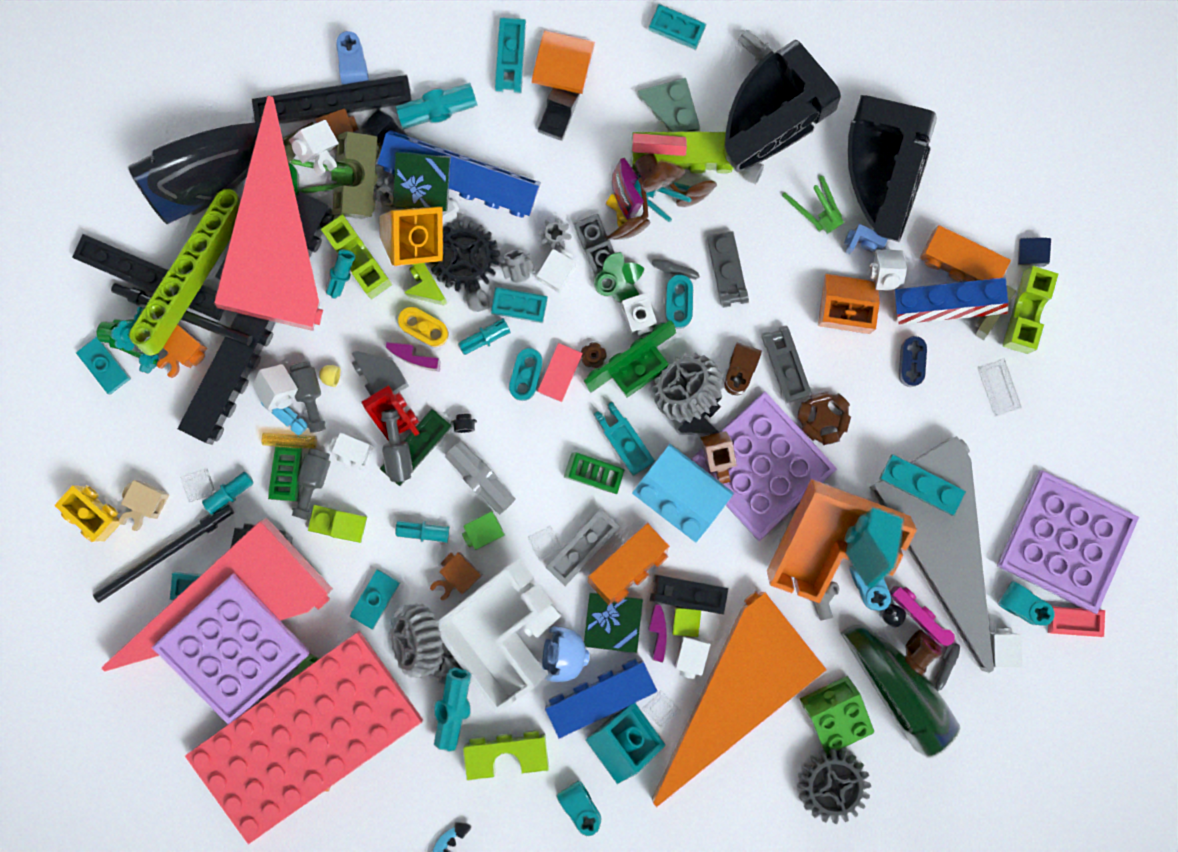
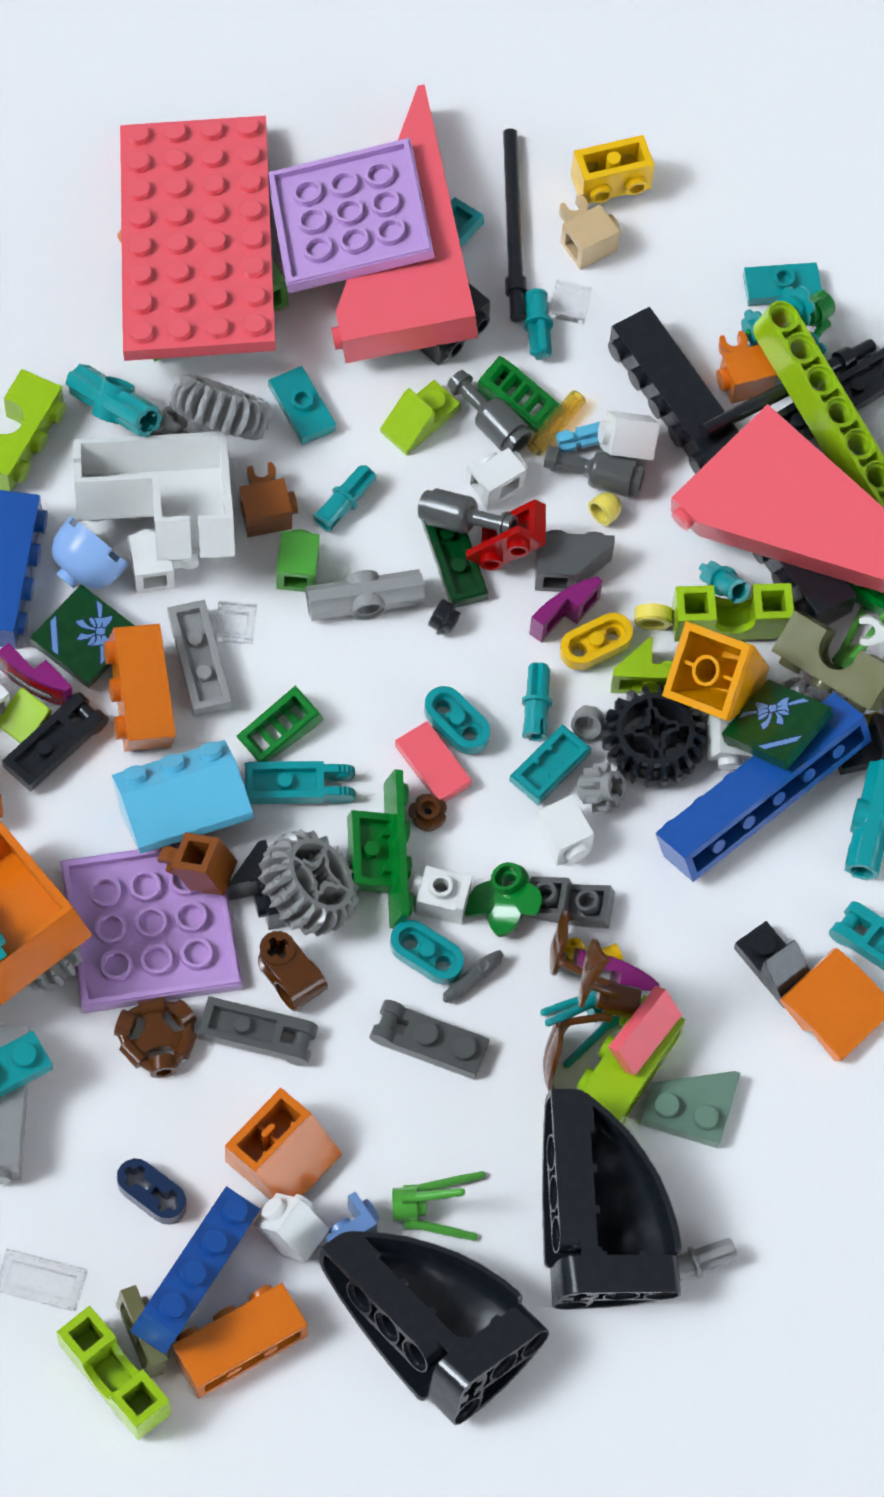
camera: 120 degrees right, 20 degrees down
(386, 303) = (653, 616): none -> light yellow tile
(550, 227) = (610, 847): light grey gear -> none
(677, 26) = (797, 1176): teal plate -> none
(753, 173) = (531, 1148): light grey hinge -> none
(1034, 251) = (187, 1444): dark blue slope -> none

